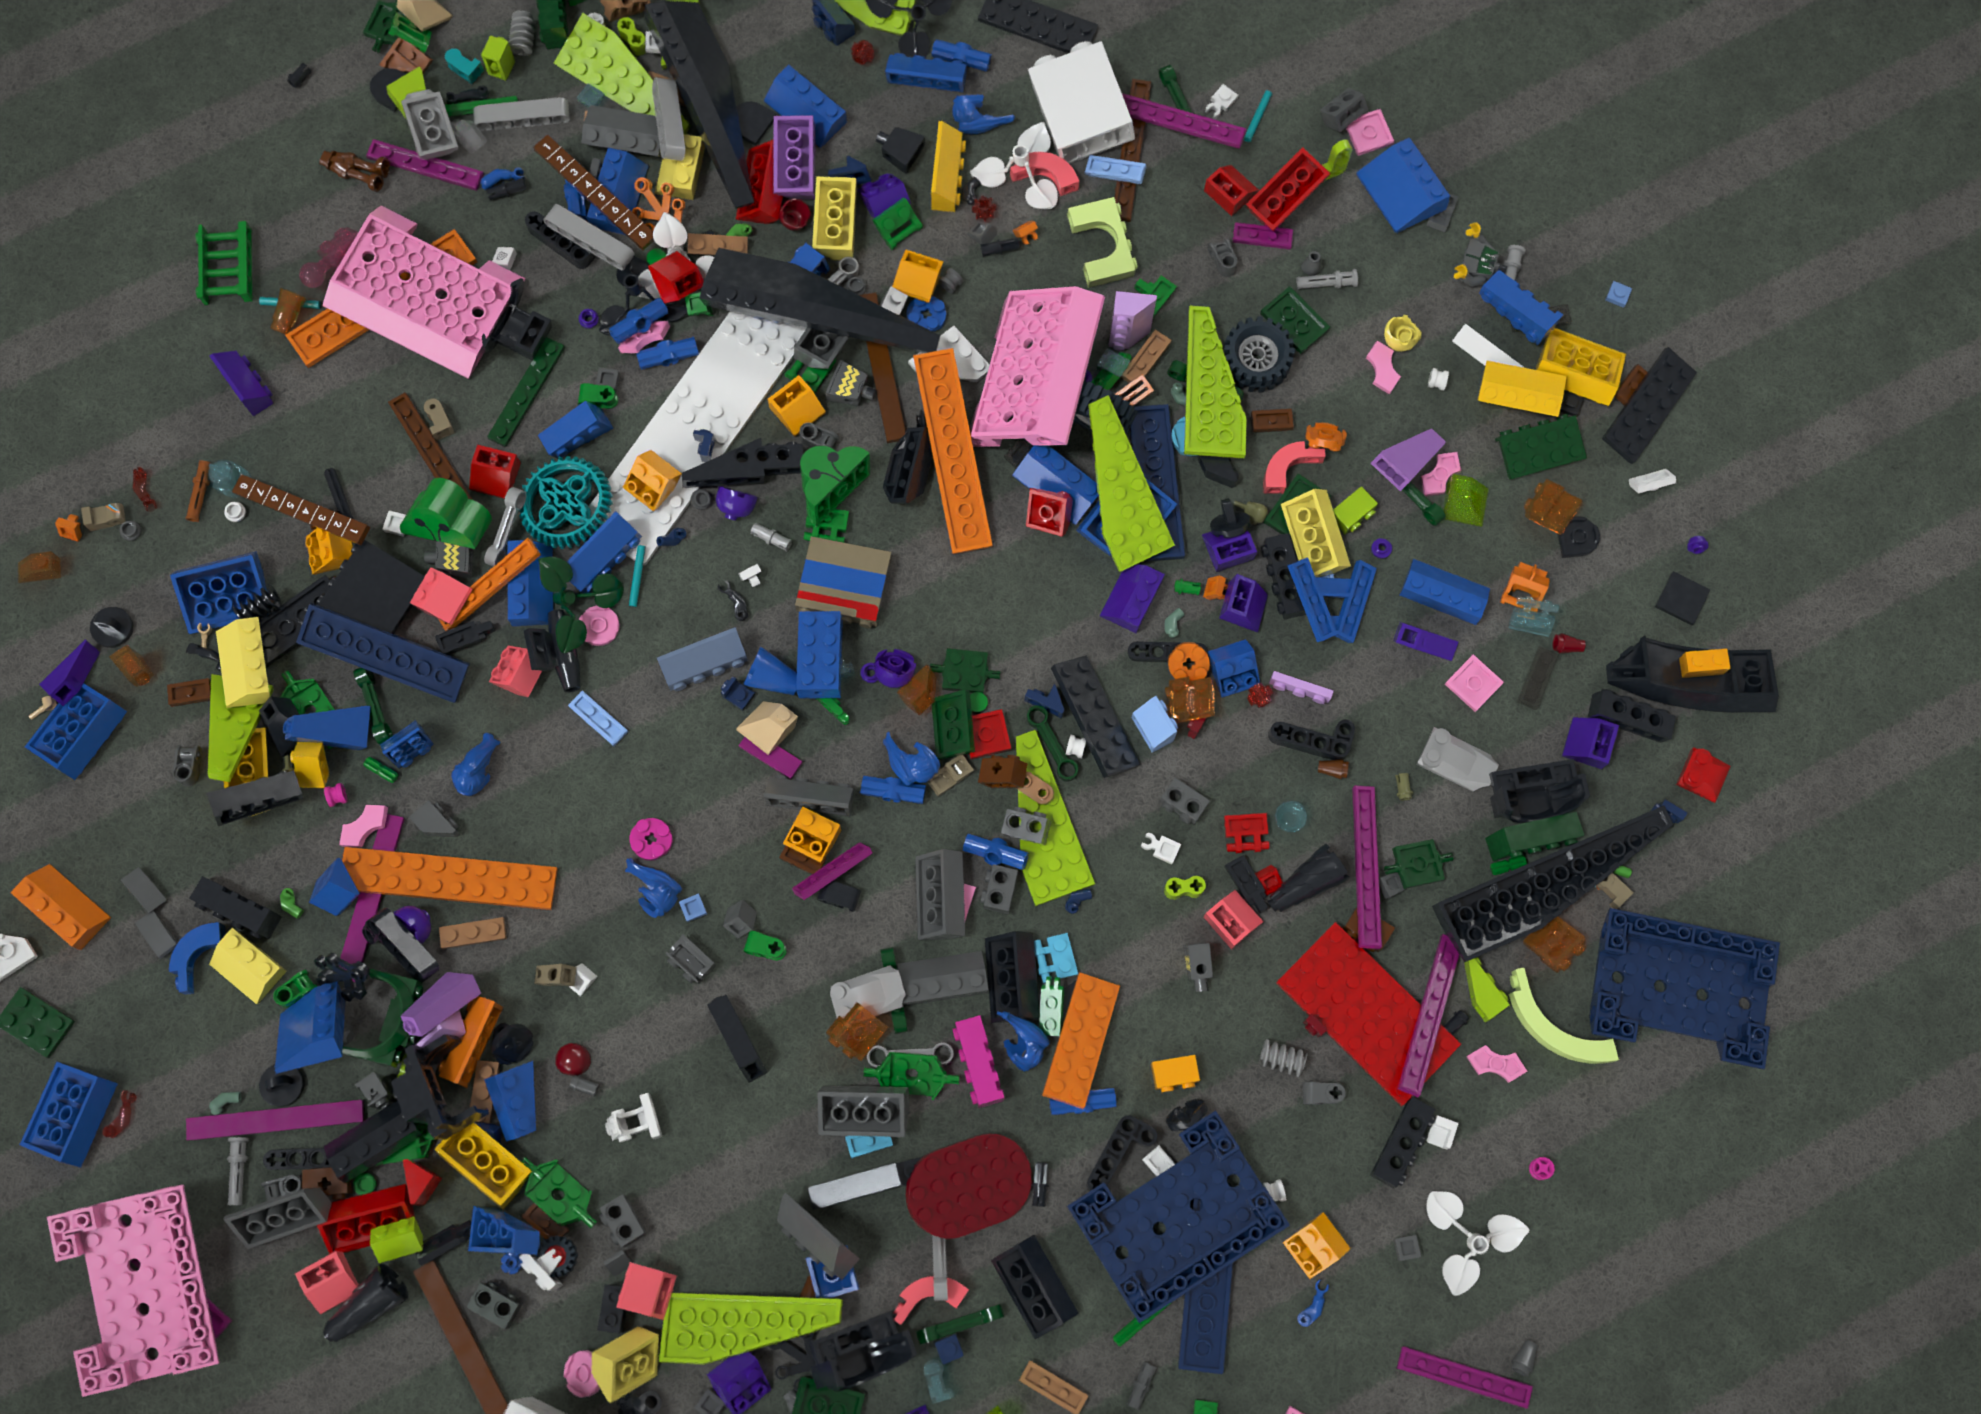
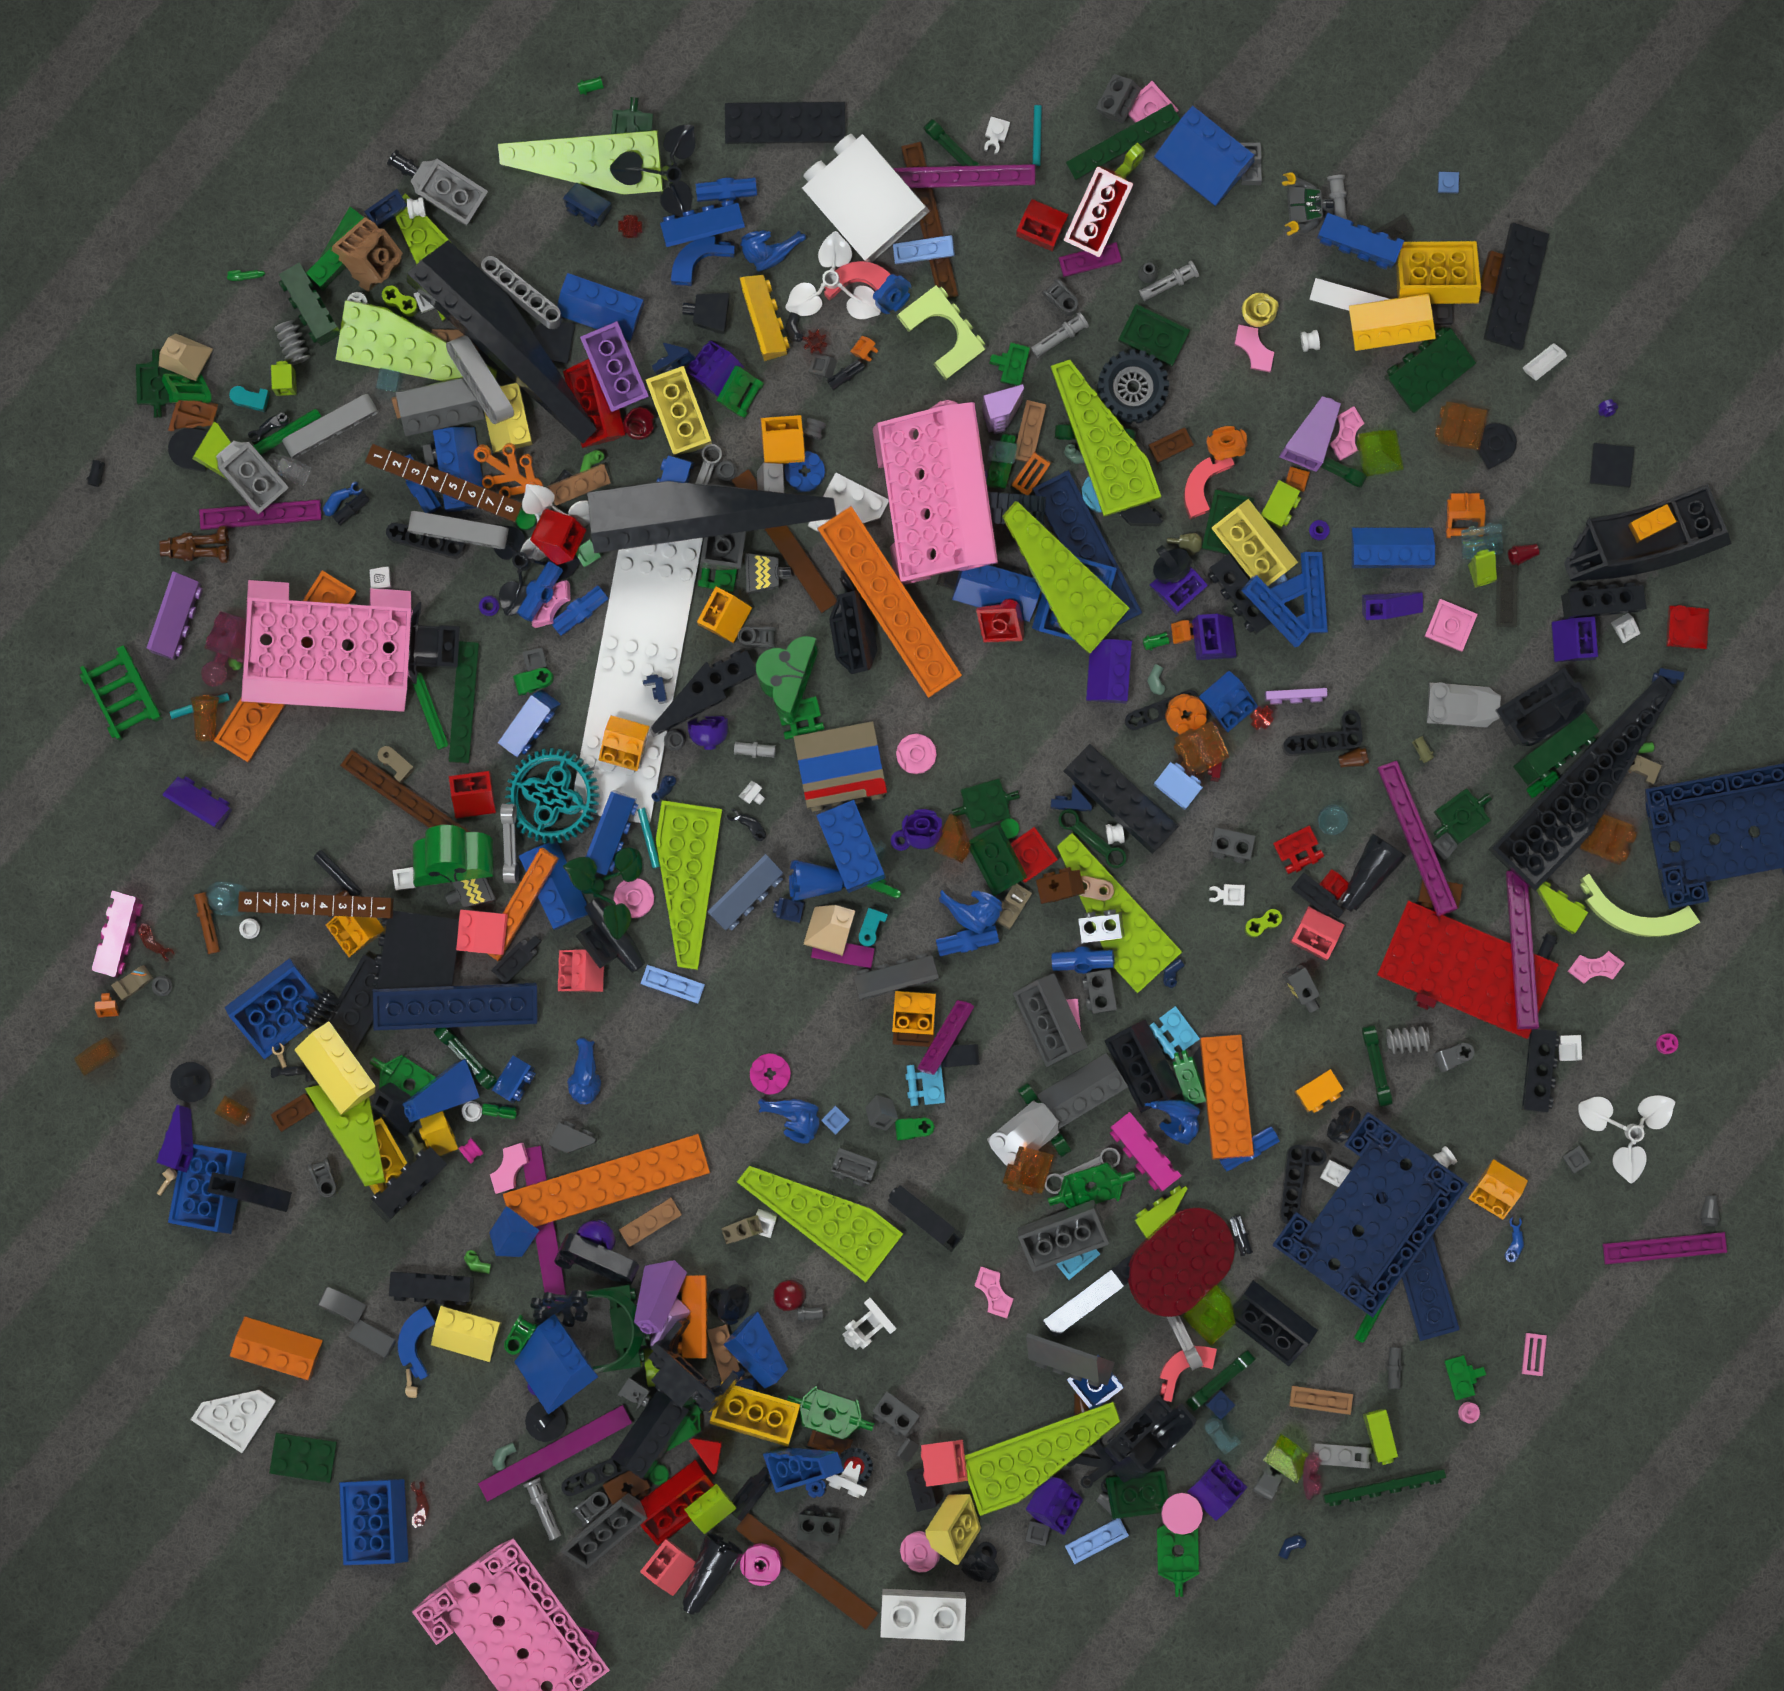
camera: 20 degrees left, 10 degrees up
(107, 745) = (249, 1192): none -> black slope
(111, 465) = (117, 934): none -> wedge
(167, 999) = (410, 1391): none -> tan hand
(302, 214) = (174, 616): none -> medium lavender slope
(354, 759) = (472, 1111): none -> white plate
(432, 1314) = (753, 1572): none -> dark pink plate
(491, 387) = (430, 712): none -> green axle
(651, 1013) = (840, 1227): none -> lime wing
(662, 611) = (686, 857): none -> lime wing
(742, 69) = (526, 300): none -> light grey beam
(772, 1130) = (998, 1301): none -> bright pink tile
(800, 914) = (932, 1086): none -> medium azure plate
(806, 739) = (867, 933): none -> teal leg
(909, 95) = (694, 252): none -> blue arch
(923, 605) = (922, 754): none -> bright pink tile
(956, 1131) = (1150, 1220): none -> lime slope
(978, 1253) = (1211, 1315): none -> clear neon green slope
(1067, 184) = (893, 285): none -> blue plate
(1217, 286) = (1067, 330): none -> light grey pin
(1238, 1097) = (1371, 1042): none -> dark green piece
(1320, 149) = (1123, 141): none -> dark green plate
(1379, 494) = (1297, 478): none -> orange tile
(1527, 638) = (1483, 568): none -> lime slope
(1643, 751) = (1626, 627): none -> white slope

